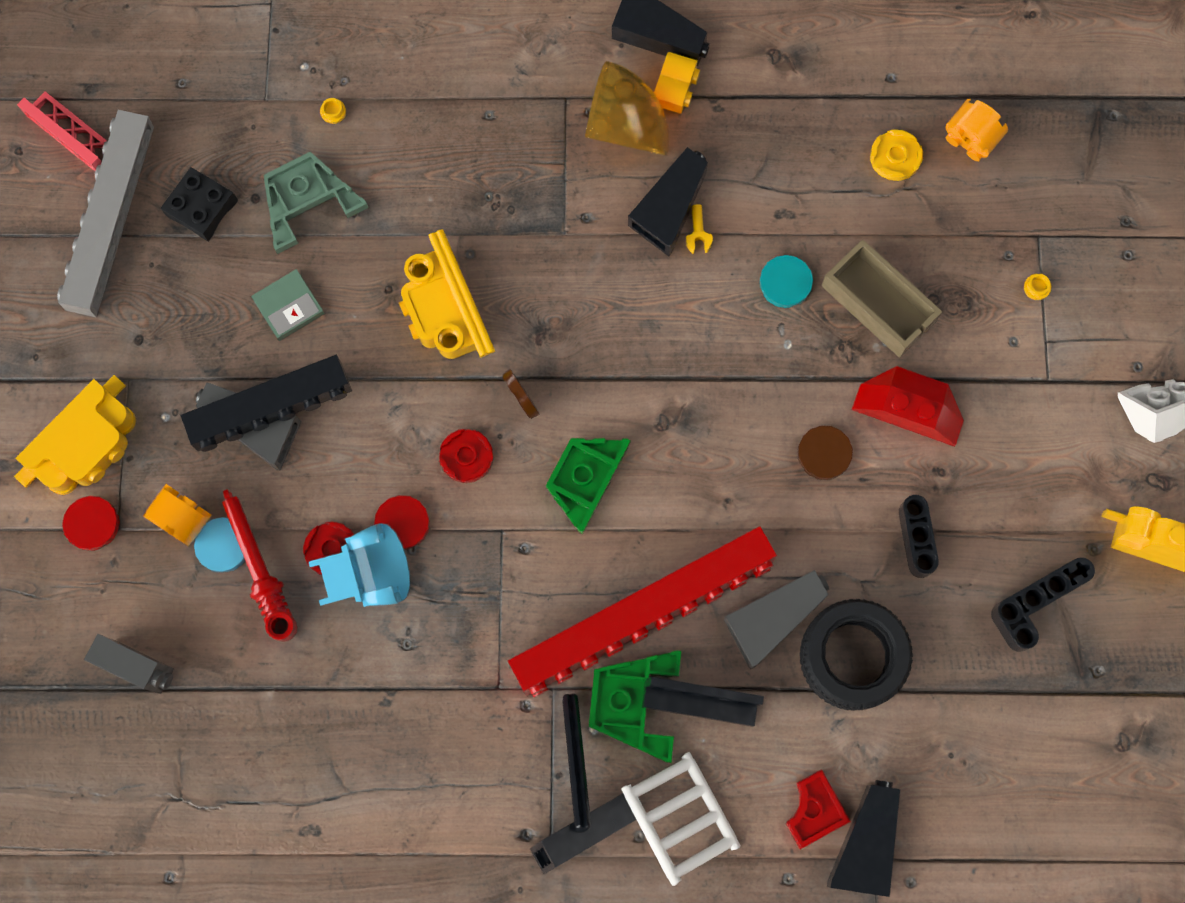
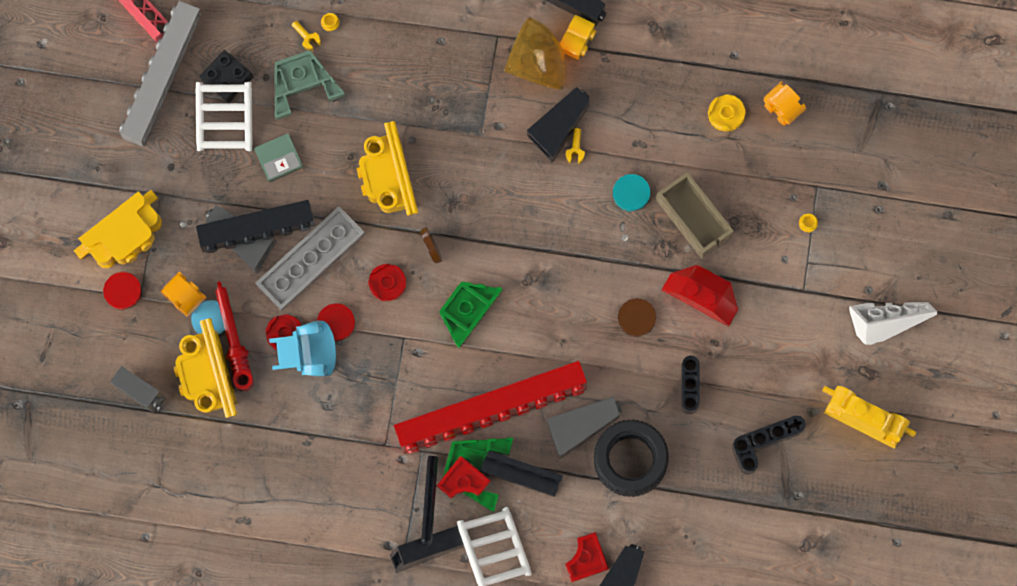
camera: 10 degrees right, 0 degrees up
(169, 250) = (201, 125): none -> white bar
(224, 622) = (205, 372): none -> yellow brick
(304, 135) = (307, 37): none -> yellow bar
(351, 438) = (310, 258): none -> light grey plate
(618, 722) = (463, 478): none -> red tile

